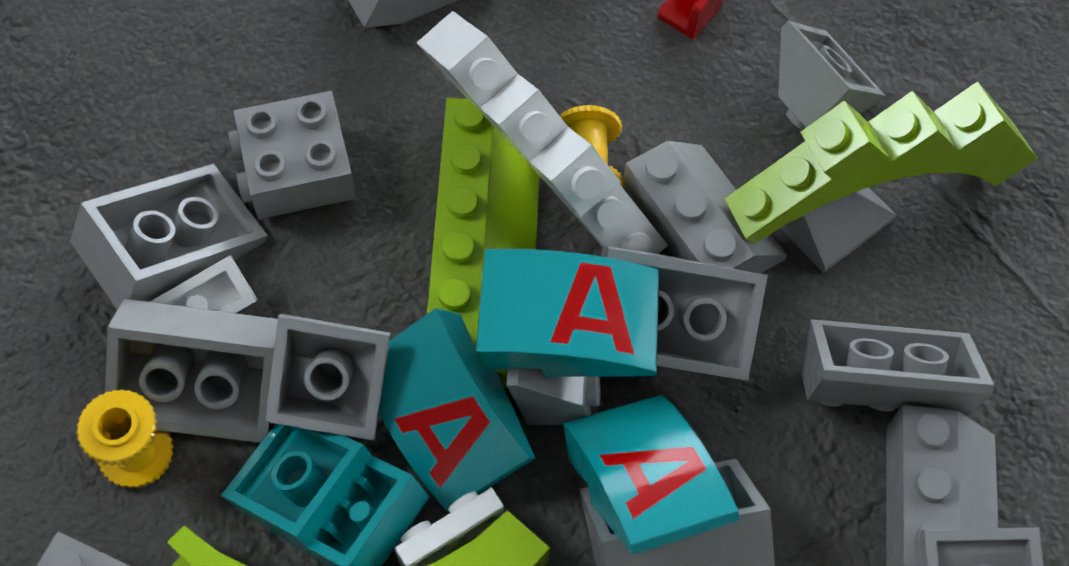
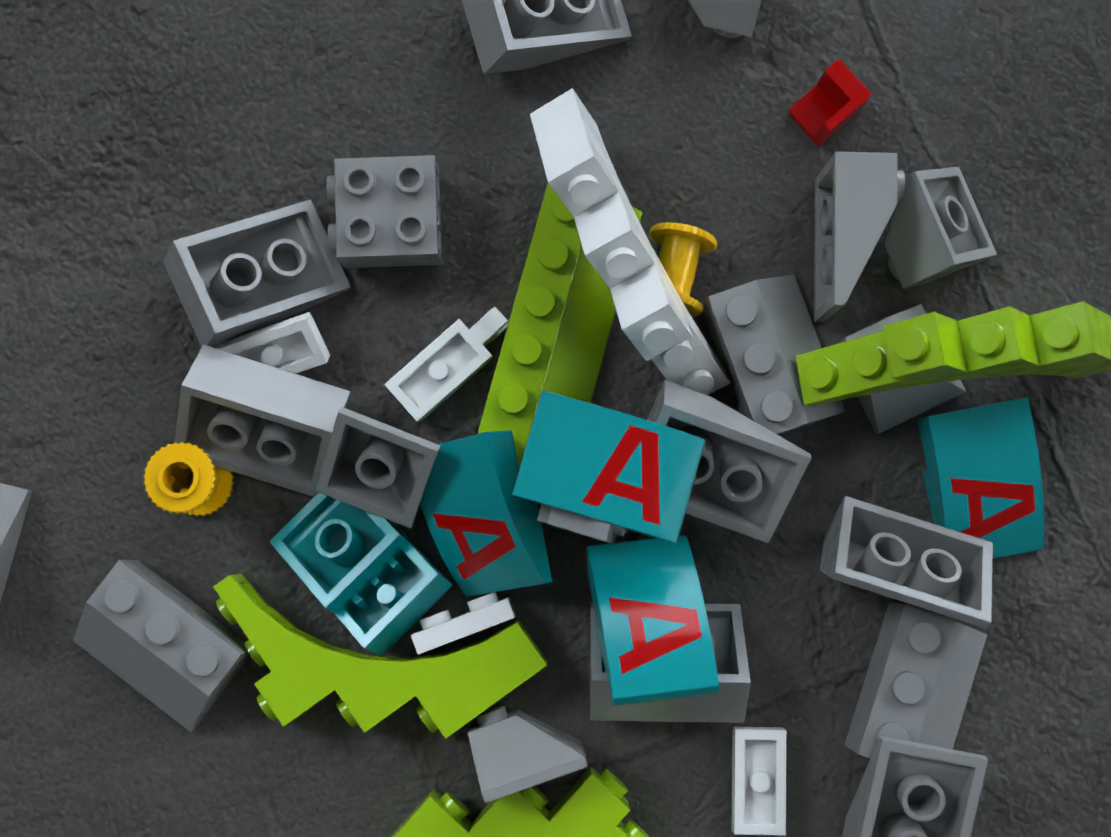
camera: 15 degrees right, 20 degrees up
(381, 280) = (446, 364): none -> white plate
(737, 76) = (851, 211): none -> light grey slope
(941, 275) = (986, 475): none -> teal slope

